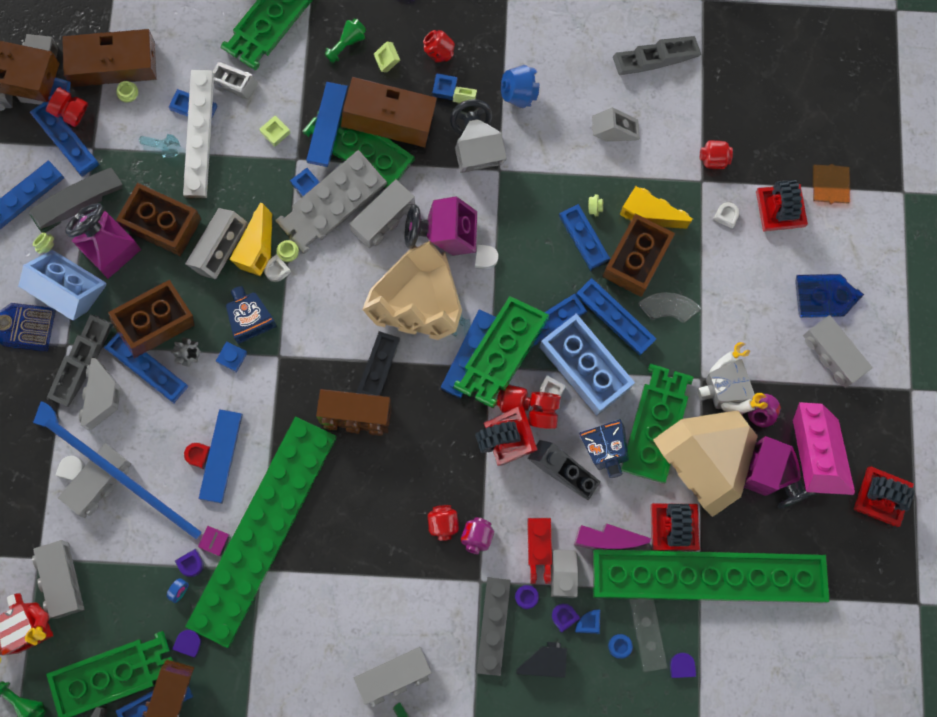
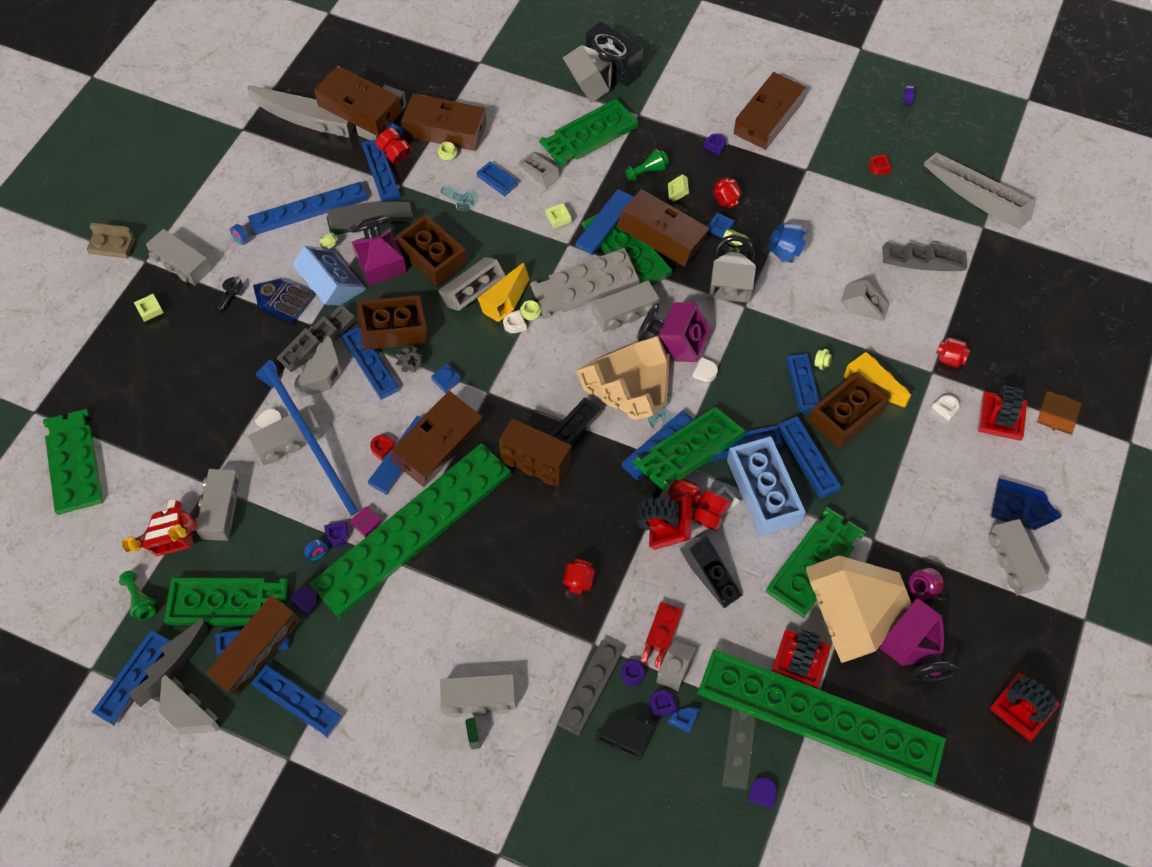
camera: 25 degrees right, 15 degrees down
(198, 134) = (492, 199): white plate -> none
(248, 315) = (474, 349): dark blue torso -> none
(249, 430) = (436, 438): none -> reddish brown brick
(304, 181) = (567, 260): blue plate -> none
(477, 535) = (606, 599): magenta head -> none
(607, 446) = (759, 562): dark blue torso -> none
(609, 539) = (732, 644): magenta slope -> none
(620, 646) = (707, 751): blue tile -> none
(669, 305) = (865, 465): clear tile -> none
(730, 384) = (900, 548): torso -> none
(822, 450) = (972, 634): dark pink slope -> none

